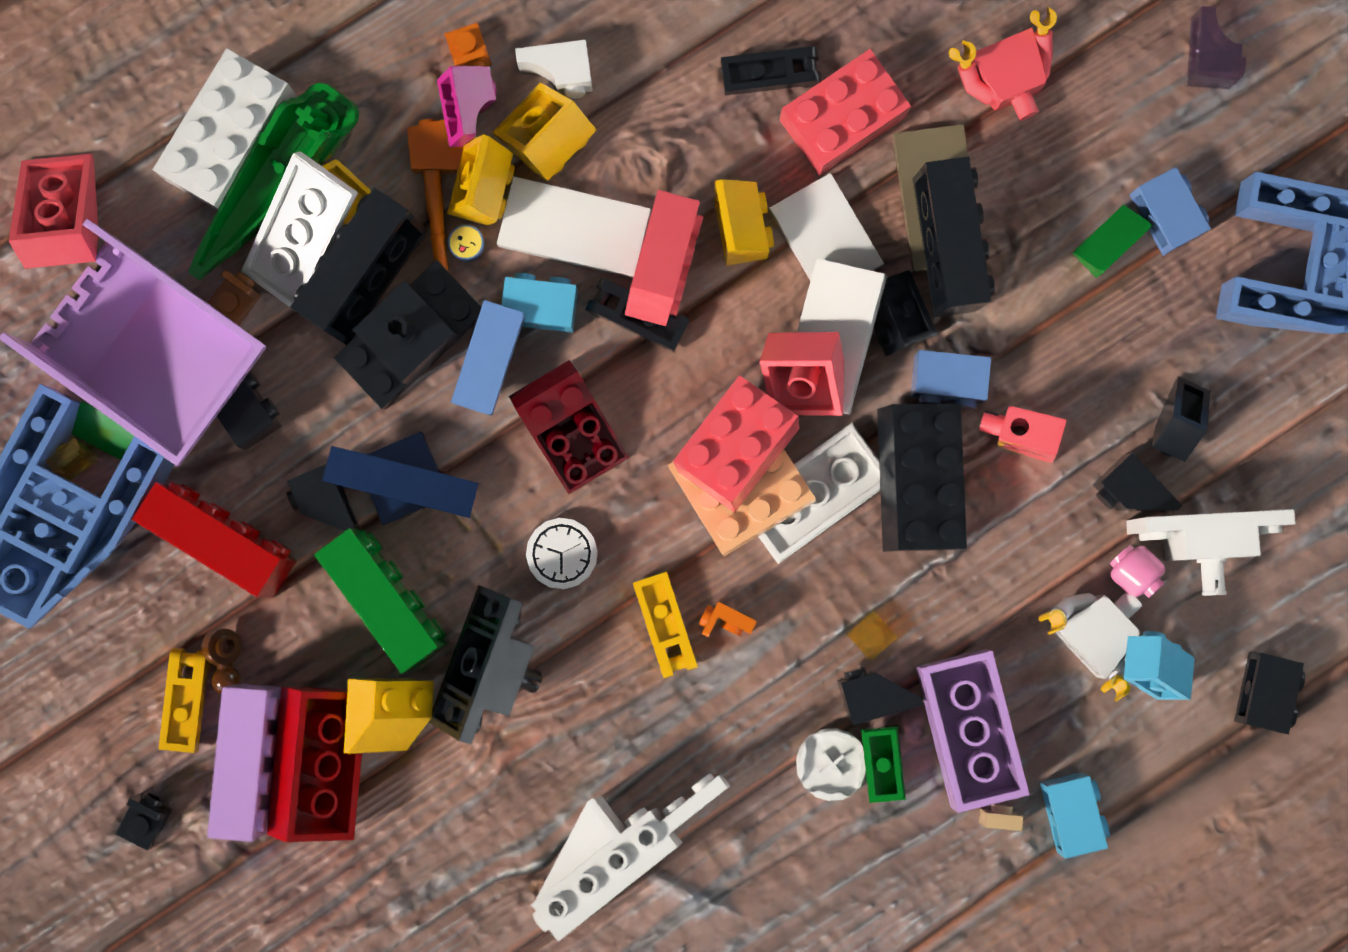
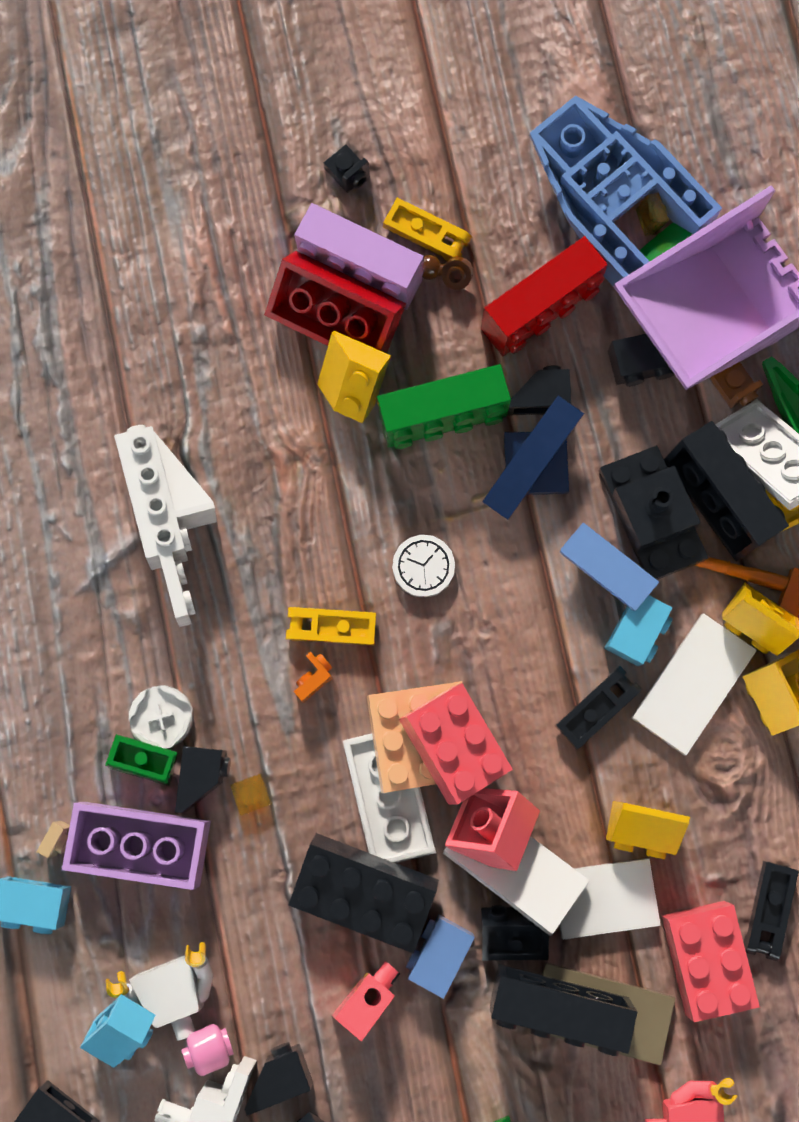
camera: 115 degrees right, 5 degrees down
(466, 243) = (713, 589): light yellow tile -> none
(484, 667) = (355, 465): black brick -> none
(568, 426) = (526, 612): dark red slope -> none
(664, 258) = (638, 746): coral brick -> none

